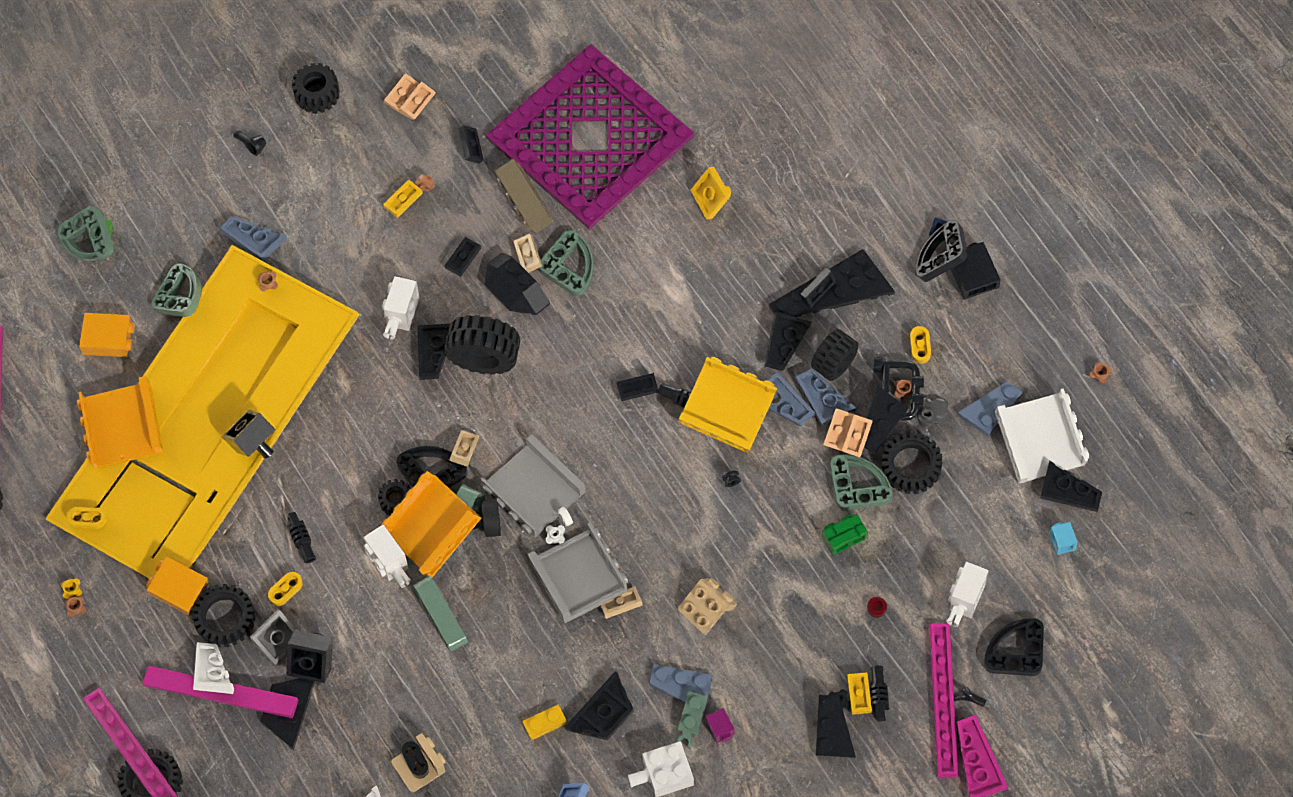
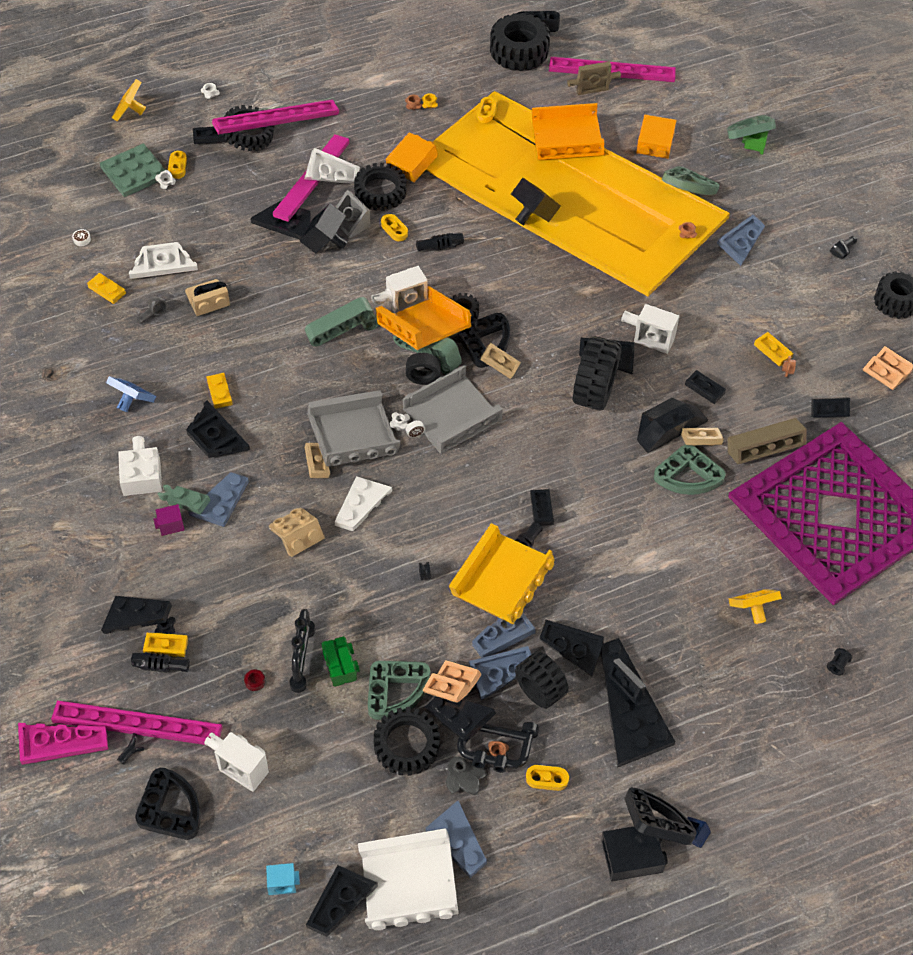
camera: 95 degrees right, 10 degrees down
(21, 407) = (594, 78): none -> dark tan plate
(661, 554) = (360, 501): none -> white wing
(750, 126) = (839, 661): none -> black bush
(871, 568) = (304, 630): none -> black bar

